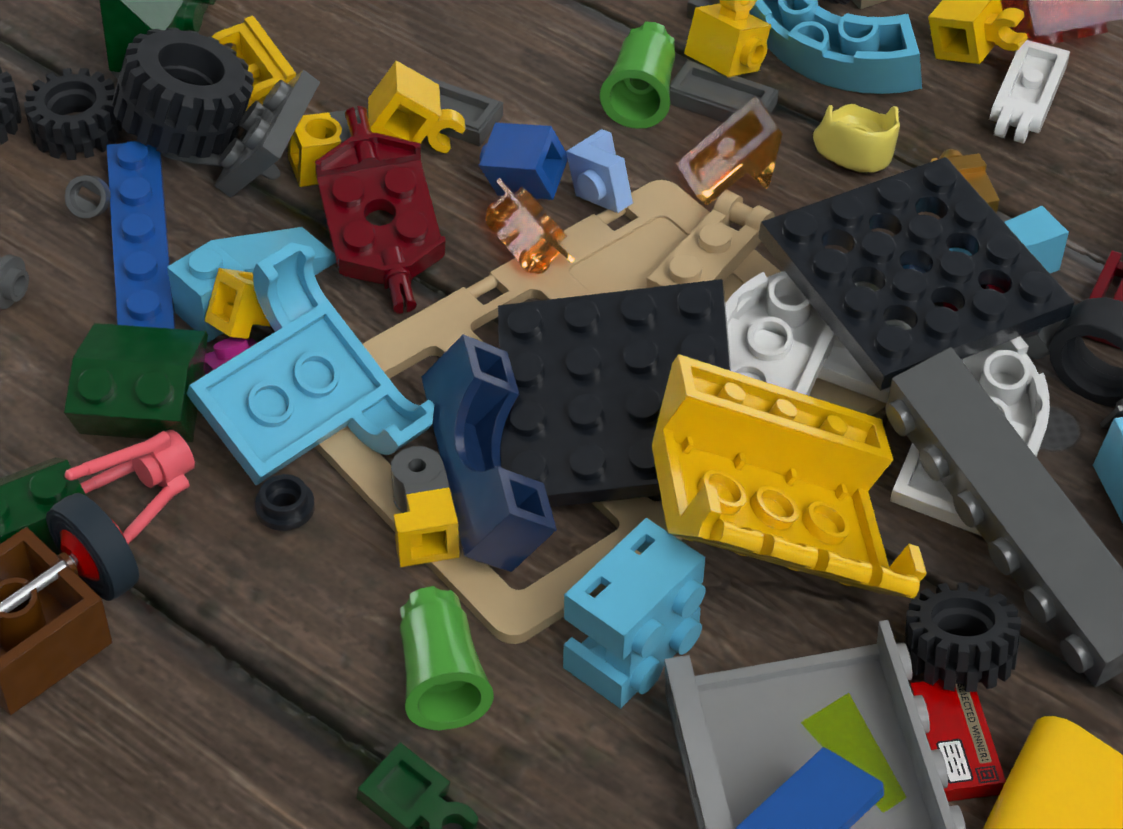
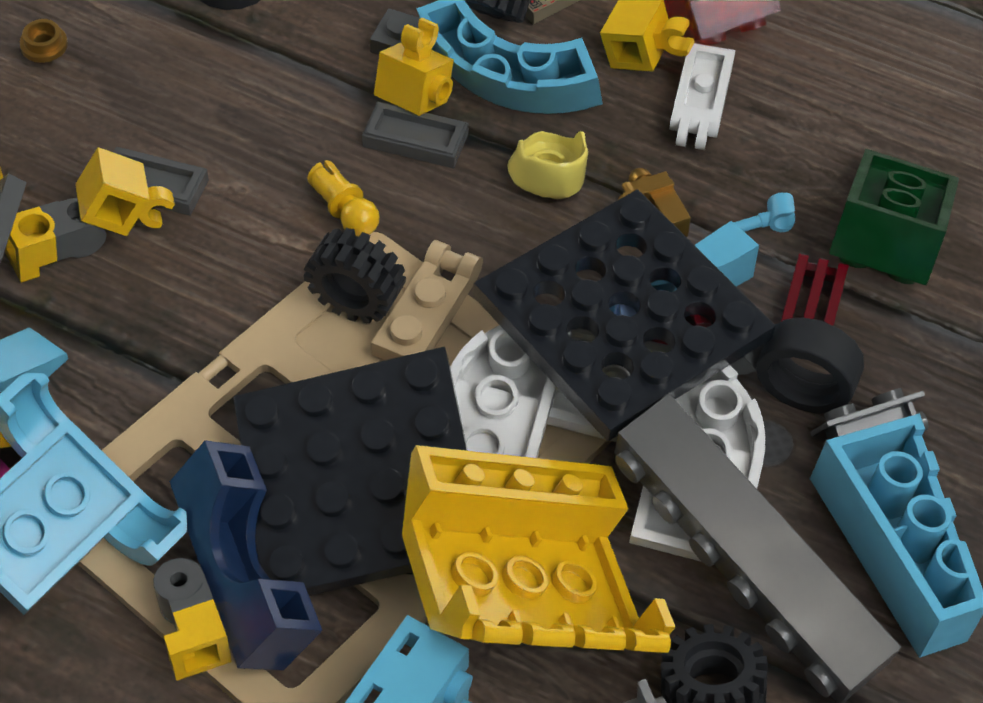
camera: 10 degrees left, 5 degrees up
(288, 492) = (52, 616): black plate -> none
(373, 175) = (95, 267): dark red plate -> none
(524, 157) = (235, 233): blue brick -> none
(528, 237) = (263, 311): clear orange hinge -> none
(599, 172) = (303, 227): light blue bracket -> none
(639, 83) = (337, 124): bright green plant -> none
(639, 146) = (344, 199): none -> yellow pin
(639, 209) = (354, 275): none -> black tyre
(739, 146) = (439, 192): clear orange slope -> none
(1095, 213) = (779, 215): none -> medium azure hand

